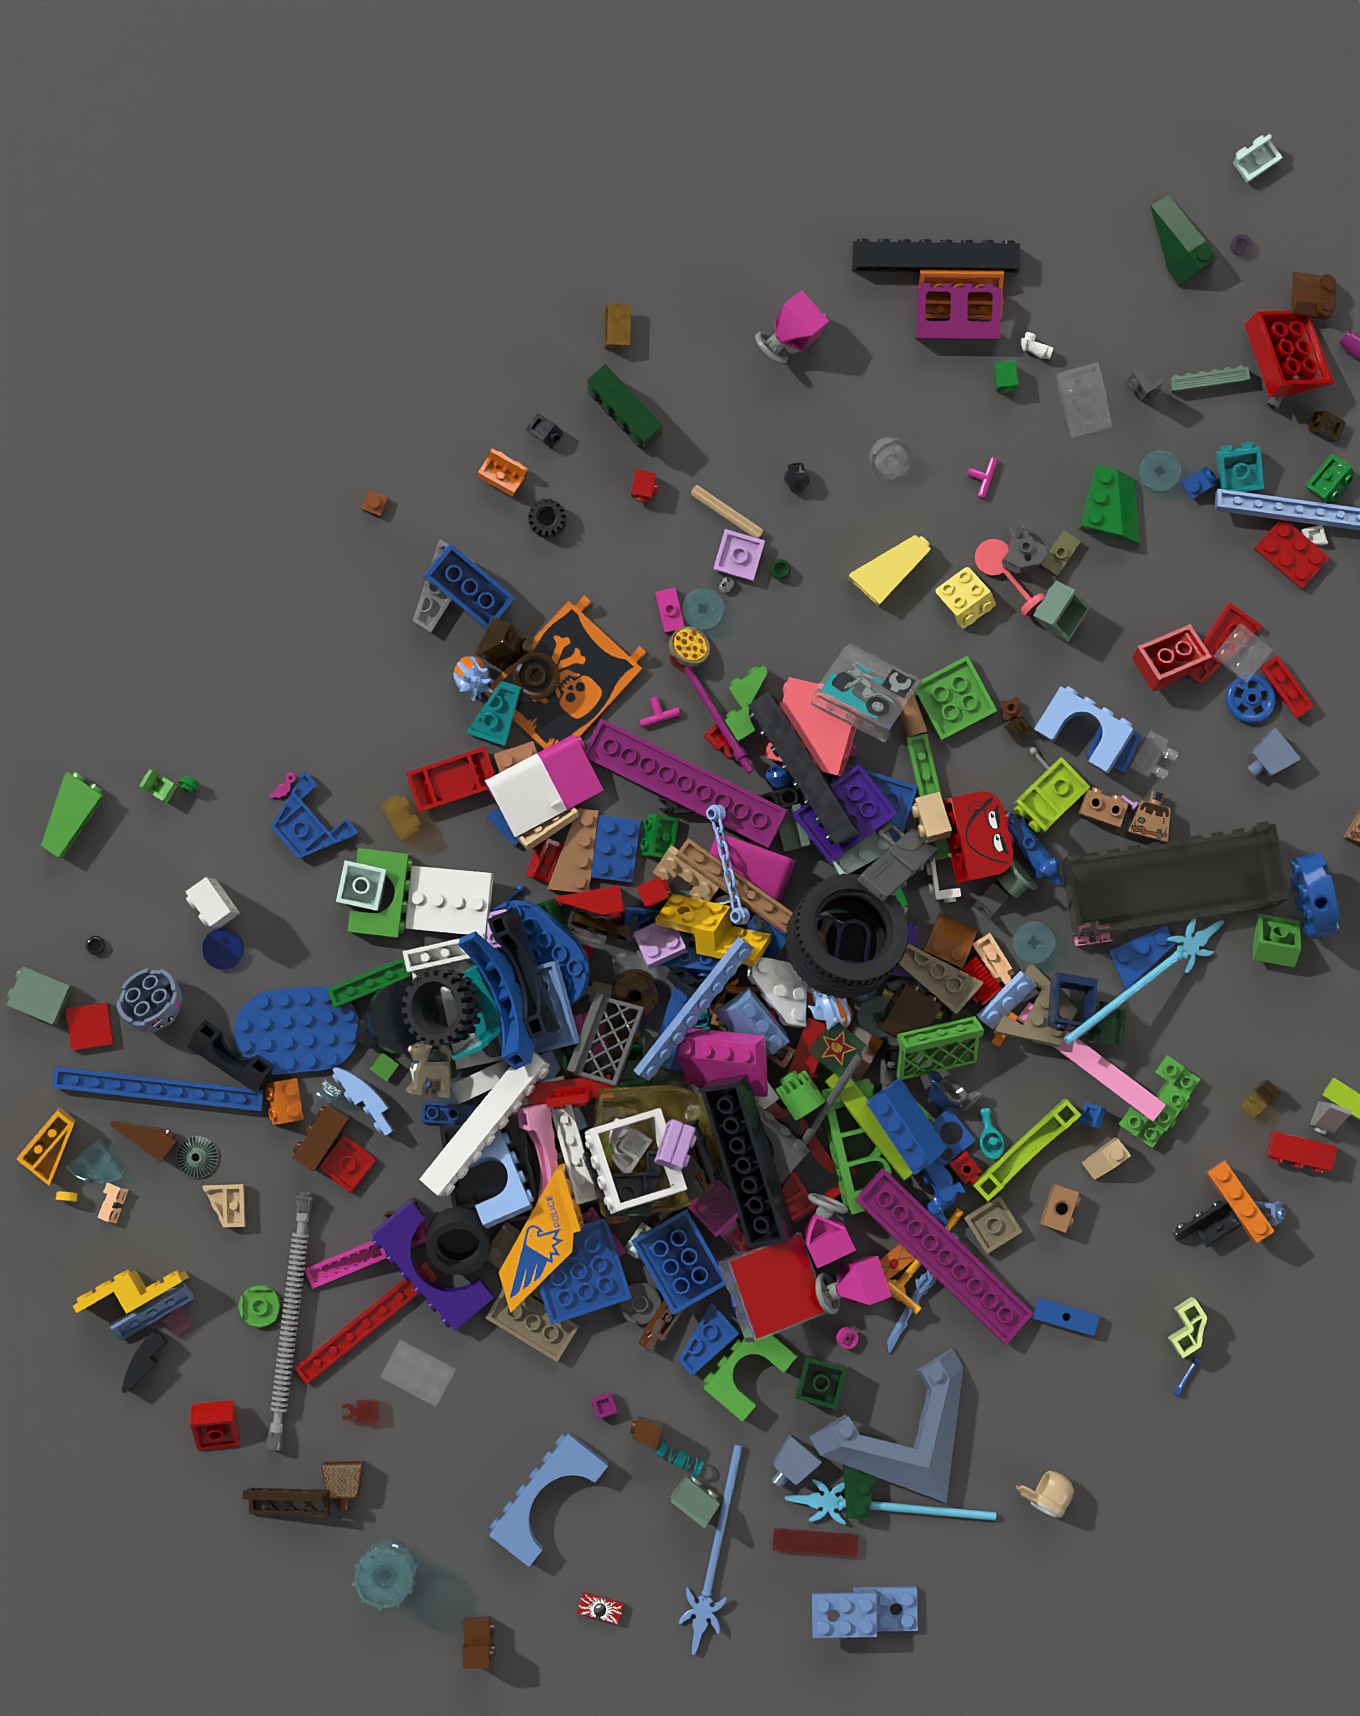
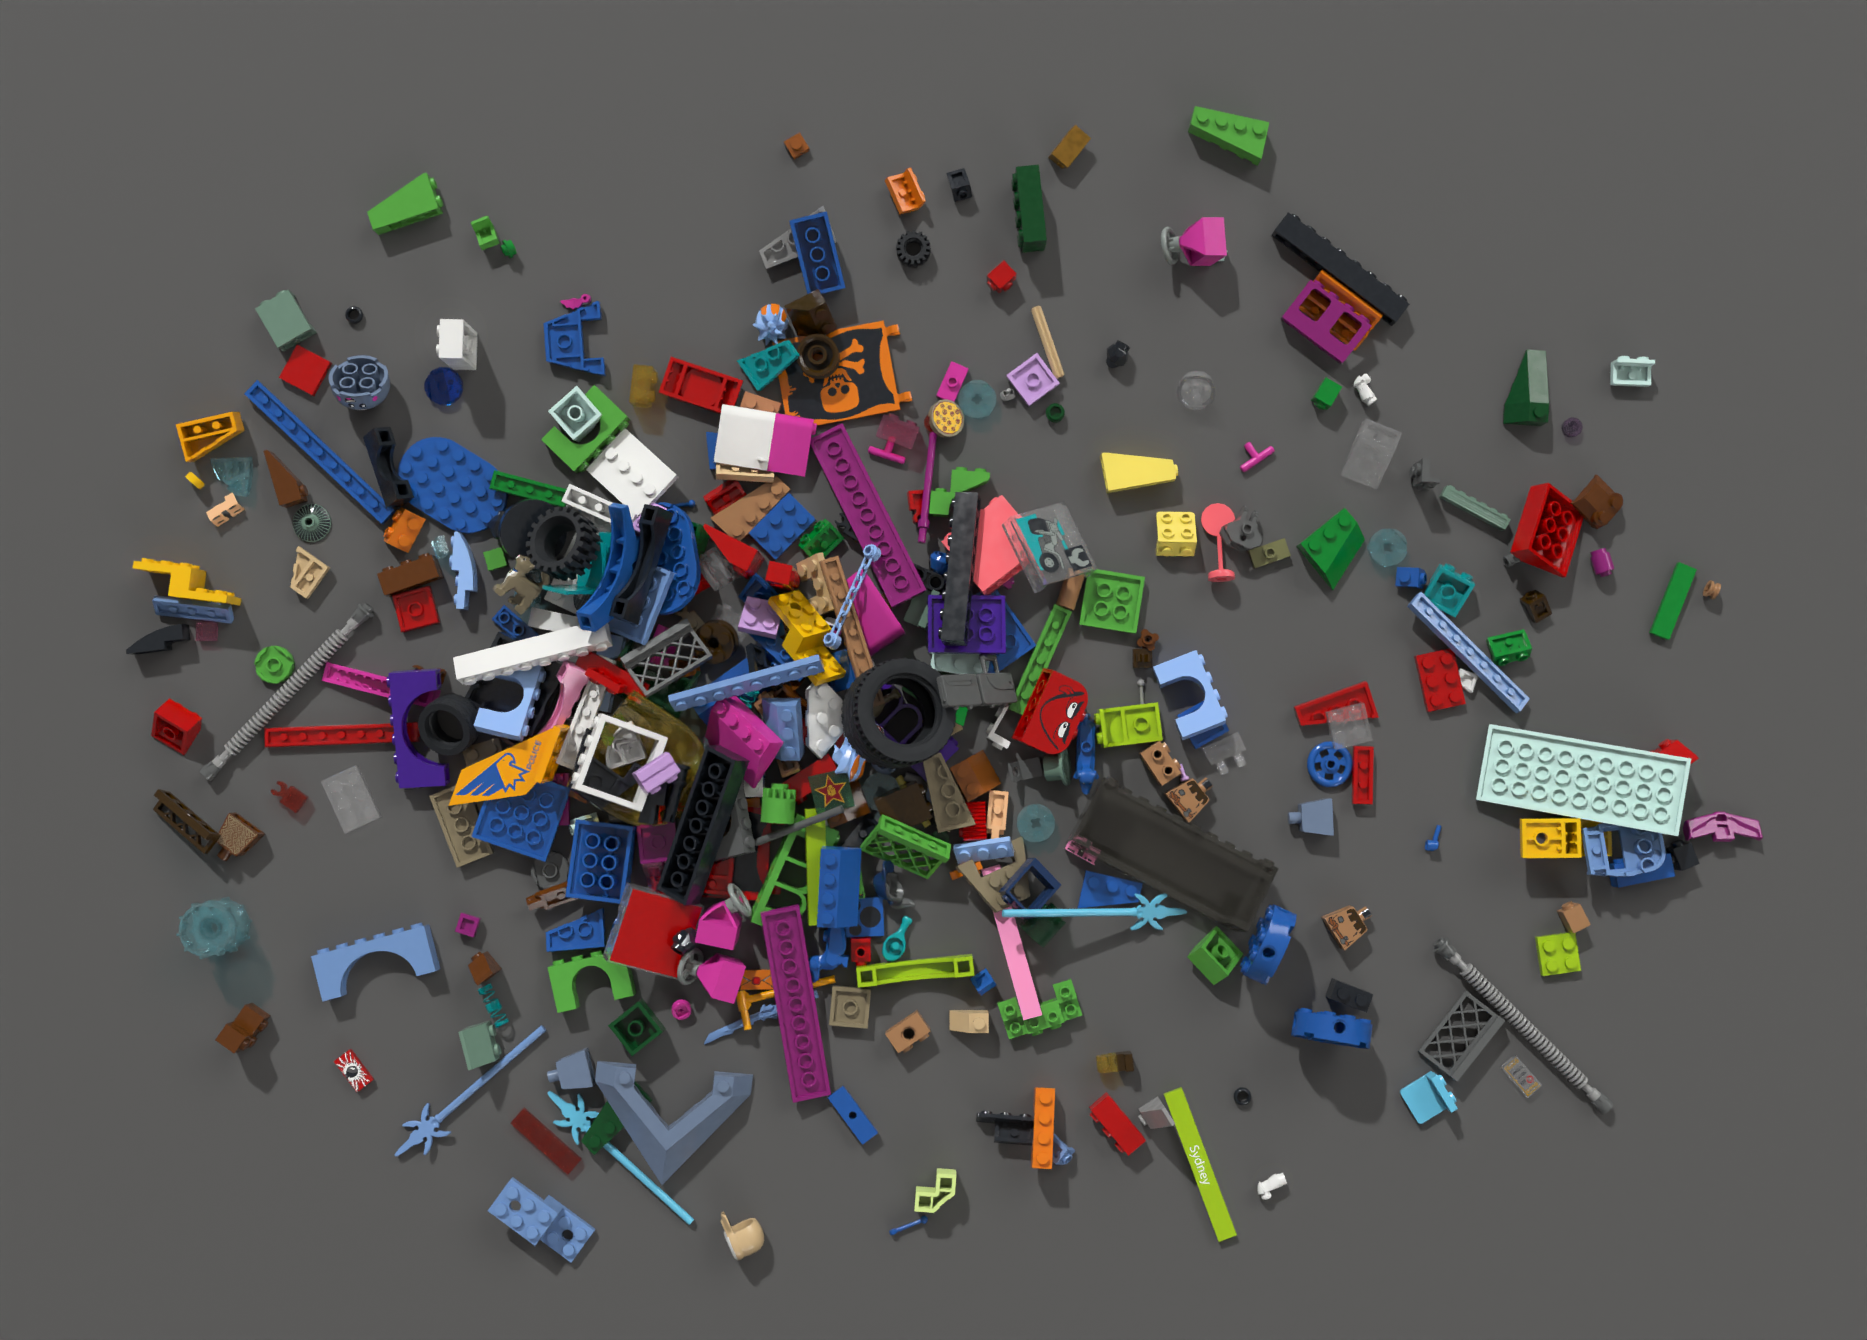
camera: 30 degrees right, 0 degrees up
(603, 927) = (727, 574): dark brown plate -> none
(655, 689) = (897, 431): none -> clear pink bracket
(749, 207) = (1231, 132): none -> bright green wedge
(807, 1274) = (684, 941): none -> black rock
(932, 817) = (1029, 675): tan brick -> none
(1061, 611) = (1238, 595): sand green piece -> none
(1170, 657) = (1293, 689): red slope -> none

